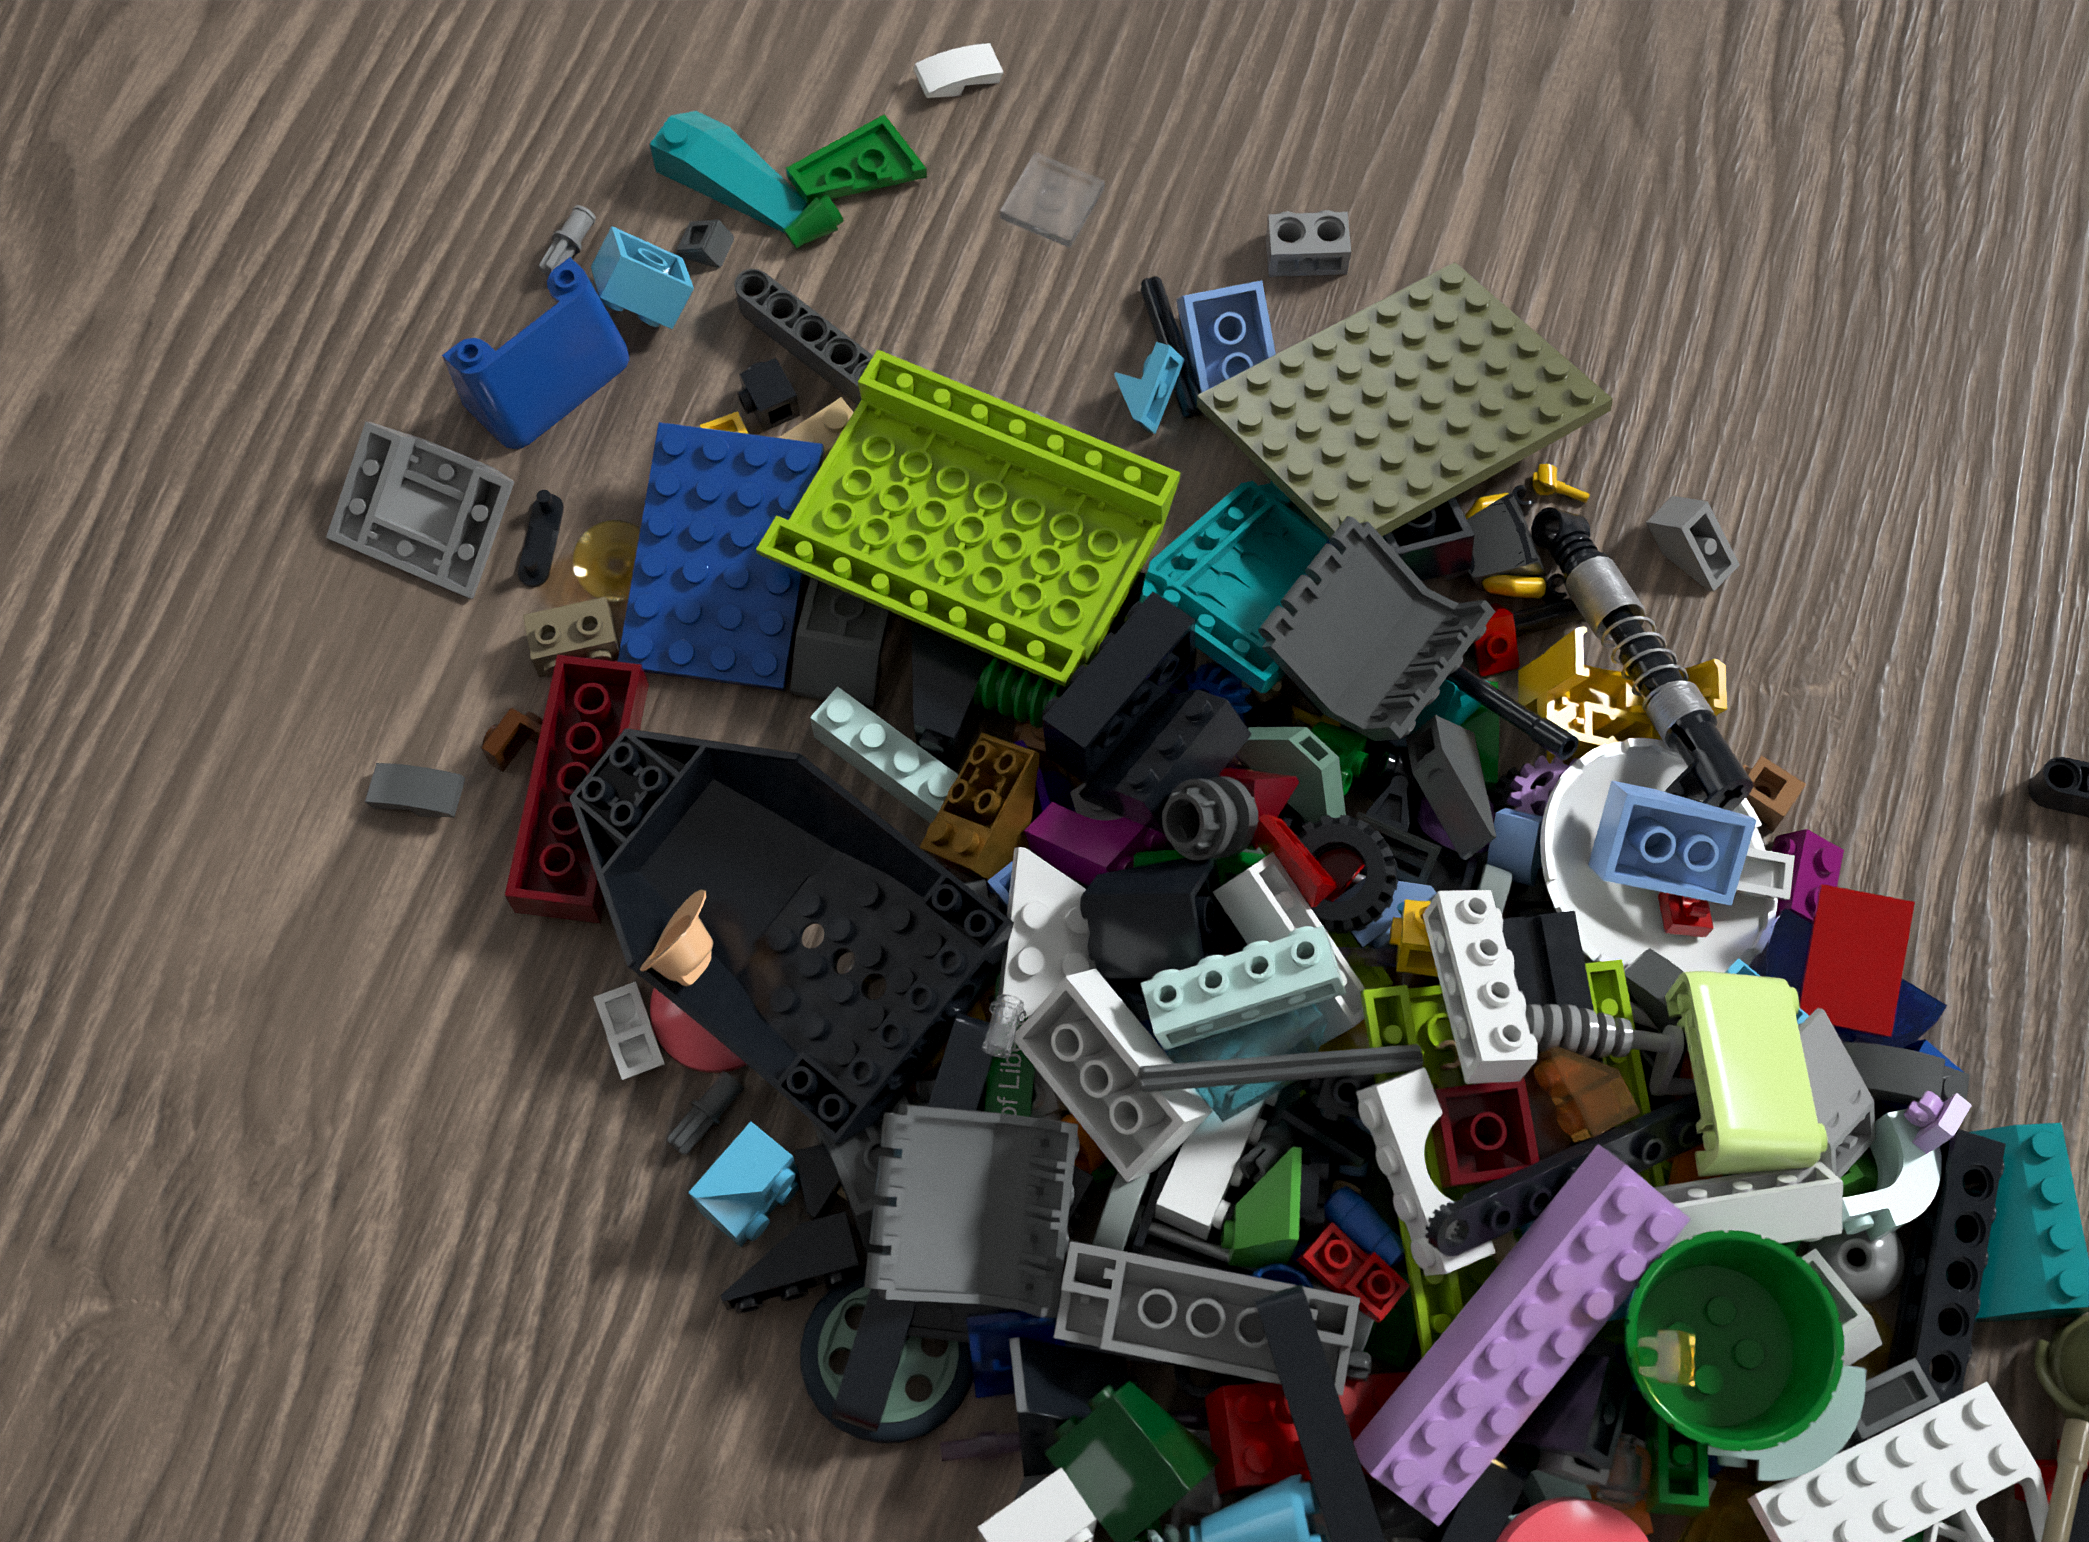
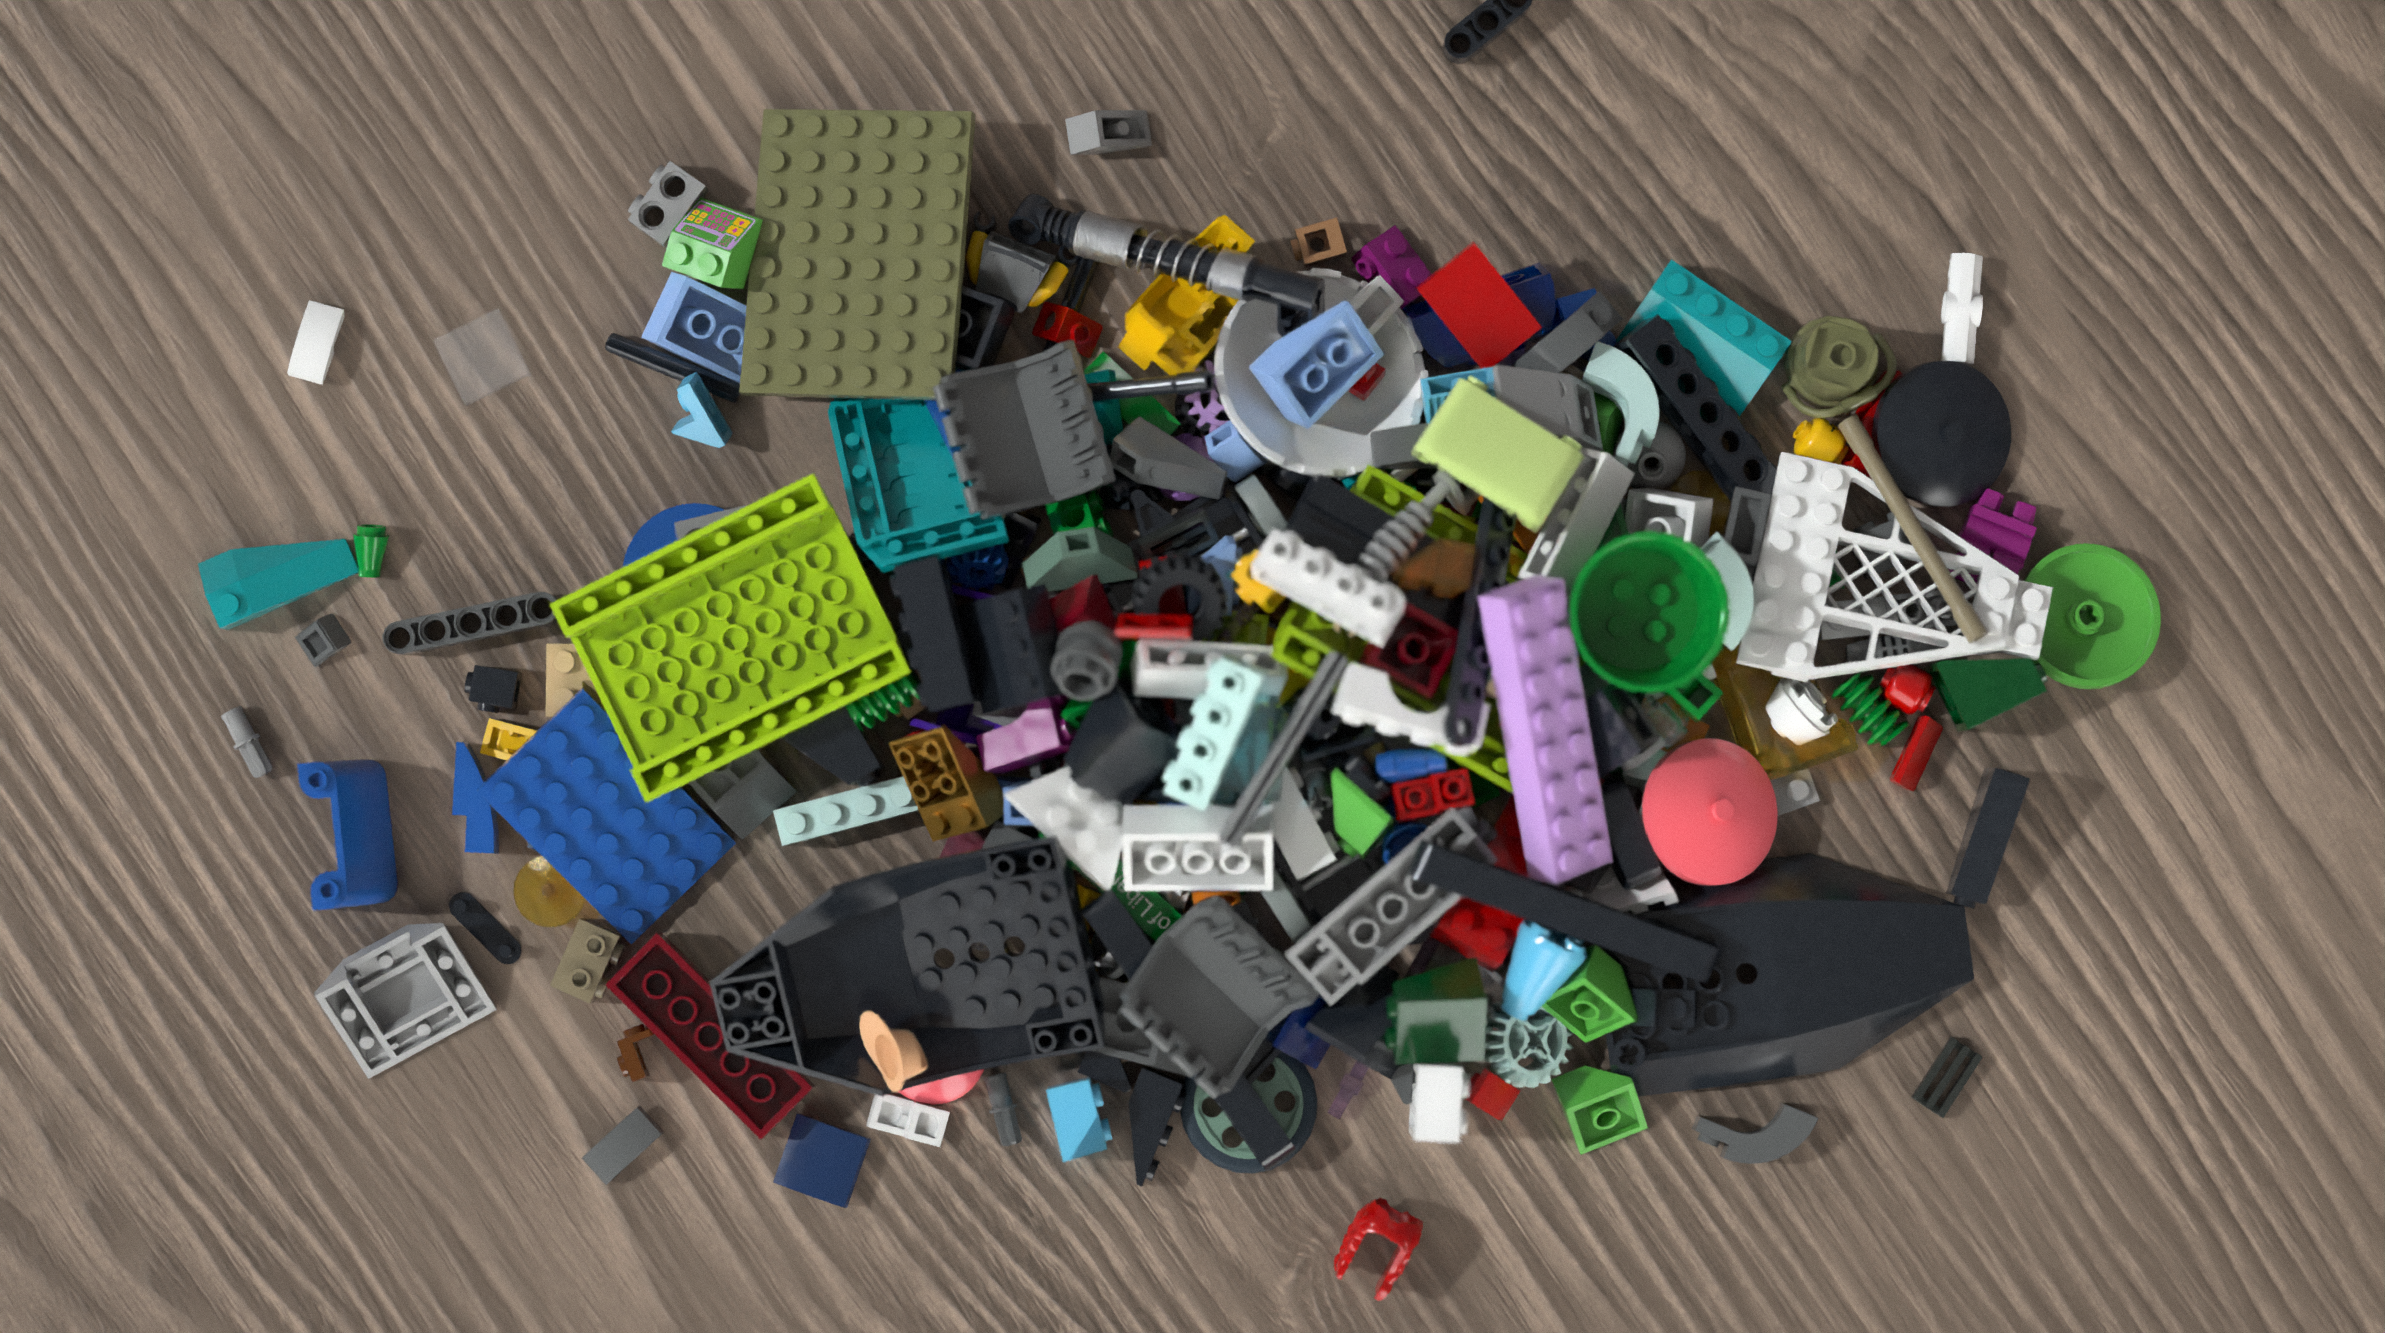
camera: 50 degrees left, 20 degrees up
(528, 979) = (821, 1160): none -> dark blue slope
(628, 469) = (481, 821): none -> blue slope
(641, 279) = (330, 713): medium azure slope -> none
(857, 163) = (342, 478): green wing -> none
(1006, 1015) = (1115, 891): clear pin -> none
(1306, 293) = (713, 244): none -> bright green slope
(1546, 483) = (983, 191): yellow hand -> none
(1675, 1358) = (1634, 661): clear yellow tile -> none
(1936, 1118) = (1613, 348): lavender tile -> none
(2032, 1419) = (1820, 441): none -> yellow head

